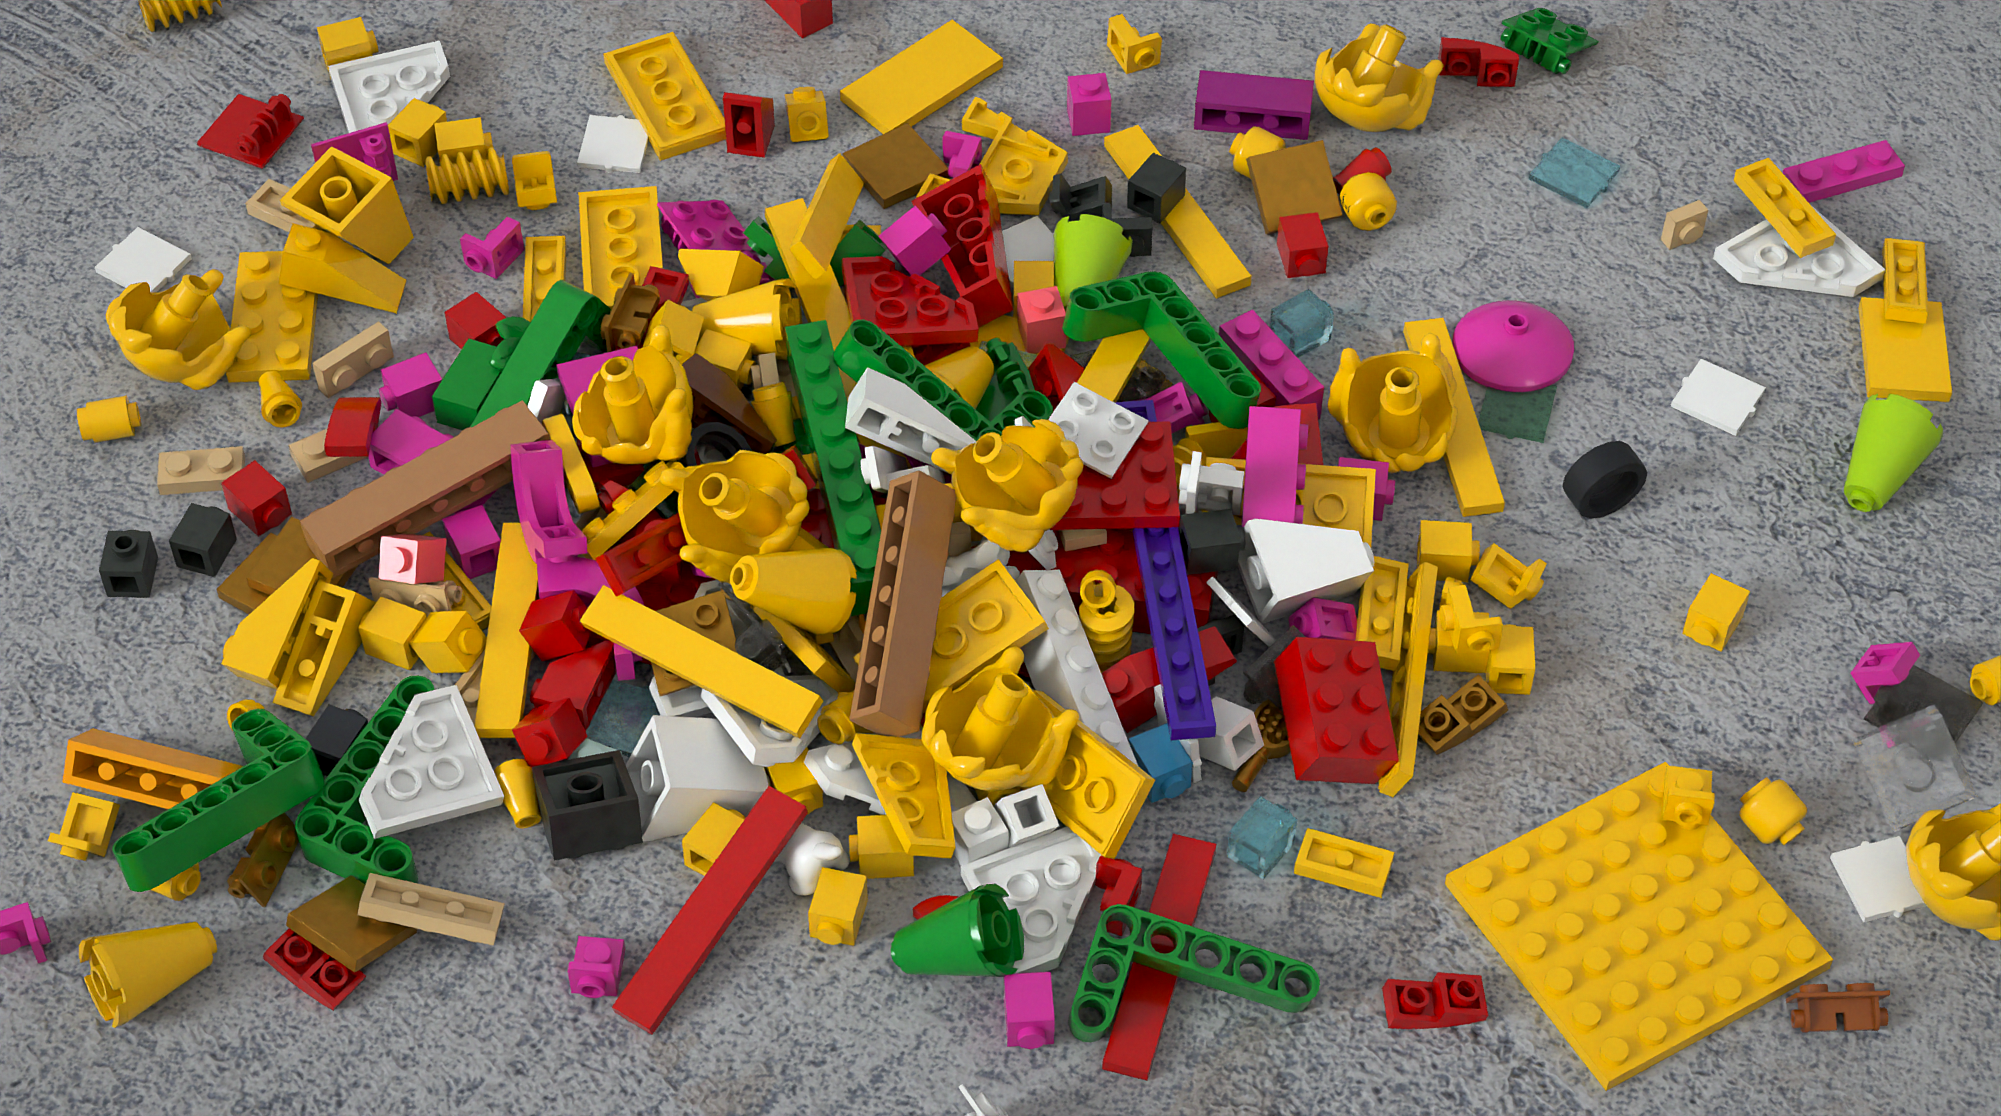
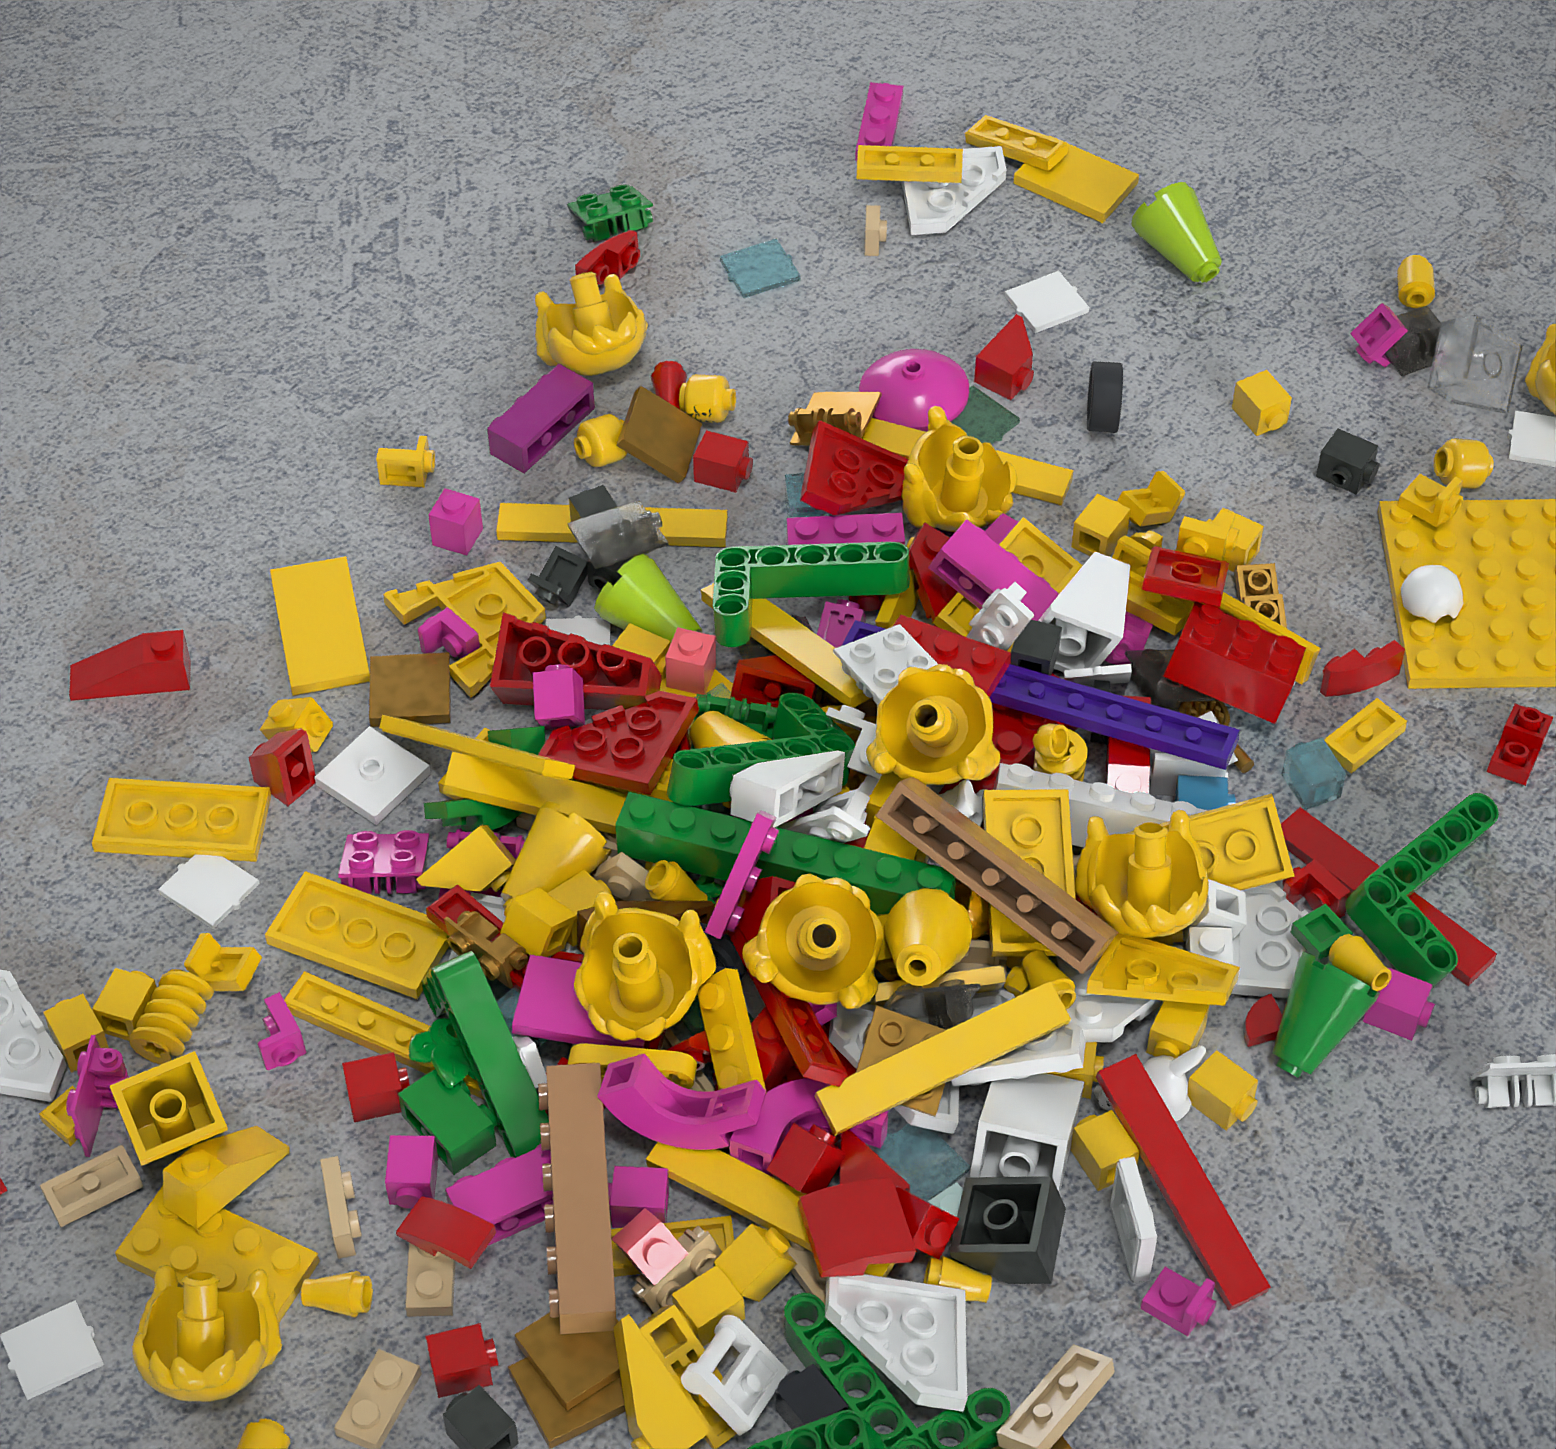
camera: 60 degrees left, 0 degrees up
(319, 685) = (747, 1383): none -> white plate
(505, 683) = (856, 1227): none -> red slope
(641, 885) = (1133, 1220): none -> white plate
(783, 178) = (372, 775): none -> white plate
(787, 425) = (743, 875): none -> dark pink plate
(1037, 944) = (1358, 959): none -> yellow cone
(1056, 907) = (1319, 931): none -> green plate
(1126, 197) = (618, 534): none -> clear smoke hinge
(1337, 317) = (849, 472): none -> red plate
(1400, 622) = (1185, 576): none -> red plate
(1409, 819) = (1358, 673): none -> red slope
(1418, 301) = (840, 409): none -> pearl gold hinge
(1558, 843) = (1432, 592): none -> white hair
(1605, 392) = (1006, 361): none -> red slope
(1693, 713) = (1348, 461): none -> pearl dark grey brick

